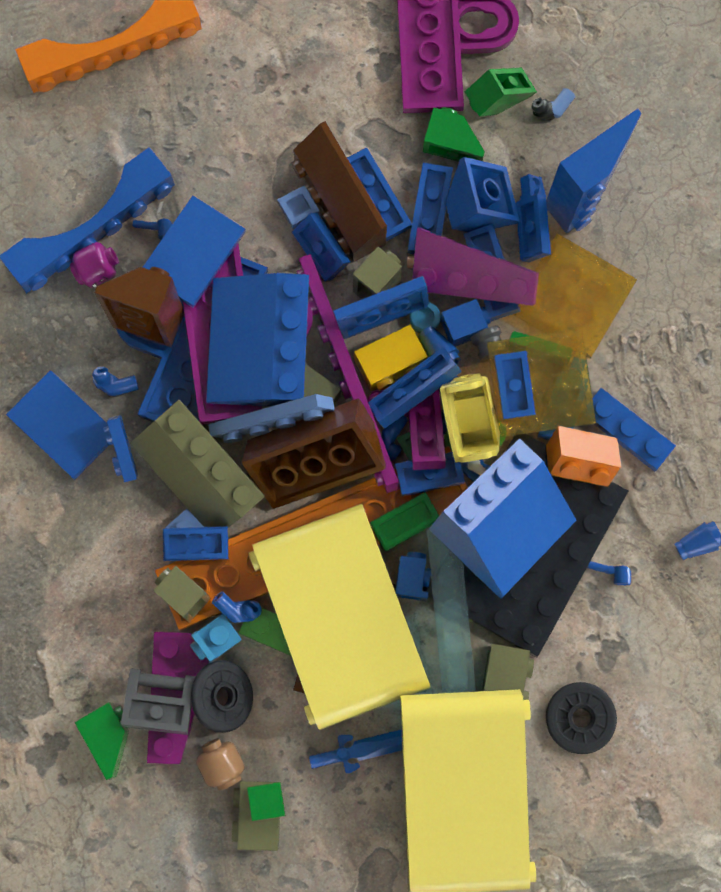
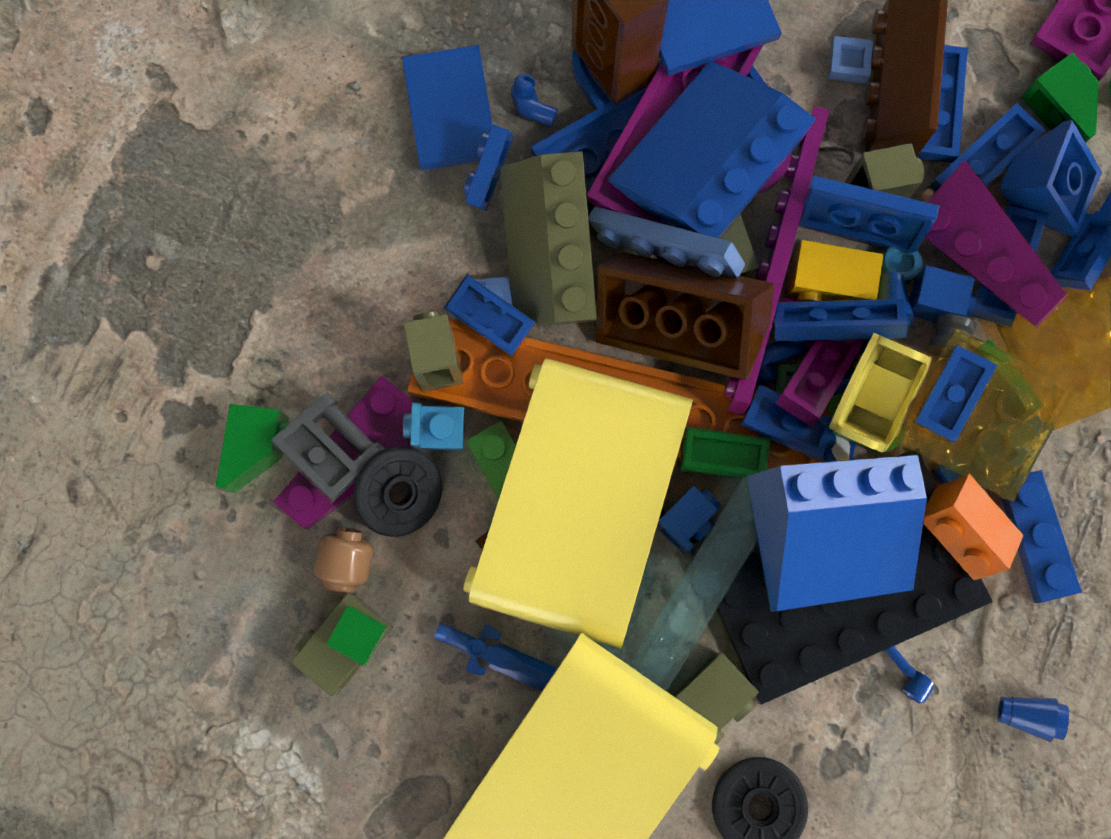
camera: 40 degrees right, 0 degrees up
(237, 611) = (479, 416): blue arm -> none
(321, 244) = (846, 120): blue plate -> none

